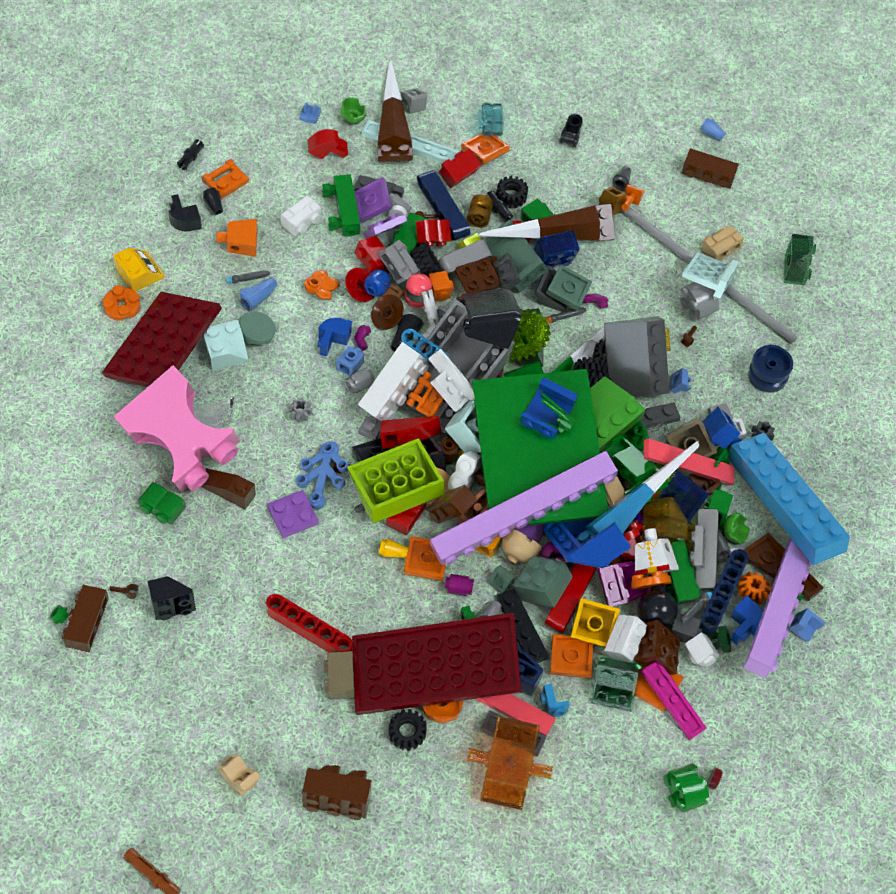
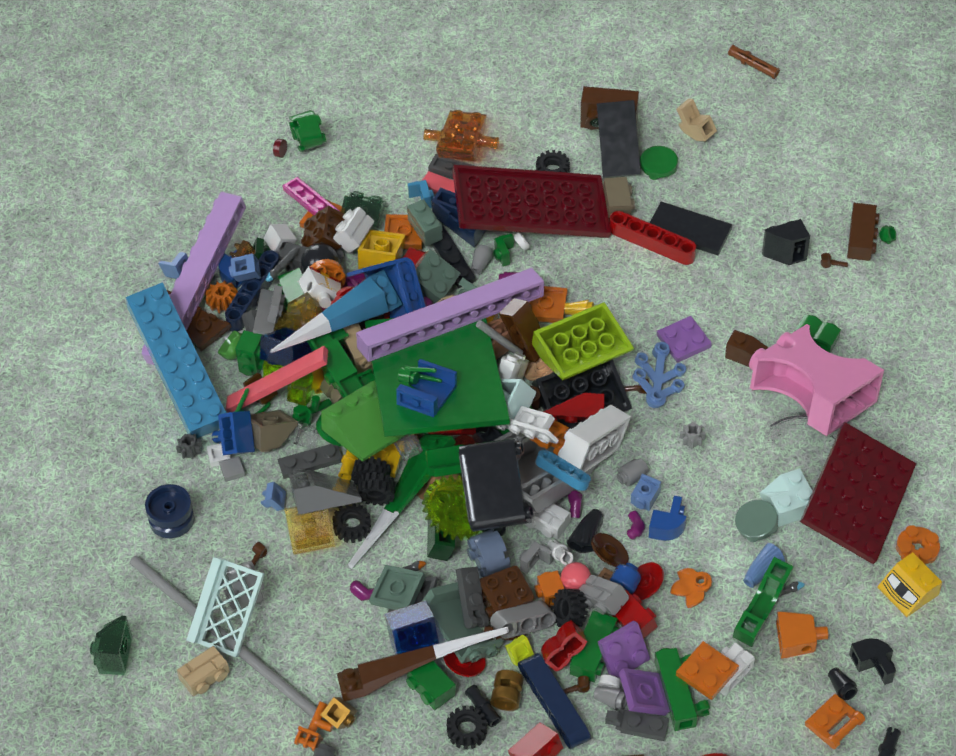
camera: 175 degrees left, 5 degrees down
(267, 642) = (706, 232): none -> black tile
(278, 242) = (763, 602): none -> green arch
(288, 729) = (658, 162): none -> green tile
(320, 203) = (707, 670): none -> orange plate
(331, 743) = (618, 139): none -> black tile
(485, 487) = (498, 337): none -> light grey bar
(550, 646) = (424, 222): none -> sand green brick
(734, 594) = (244, 262): none -> medium blue brick
(739, 619) = (242, 249): none -> clear orange tile

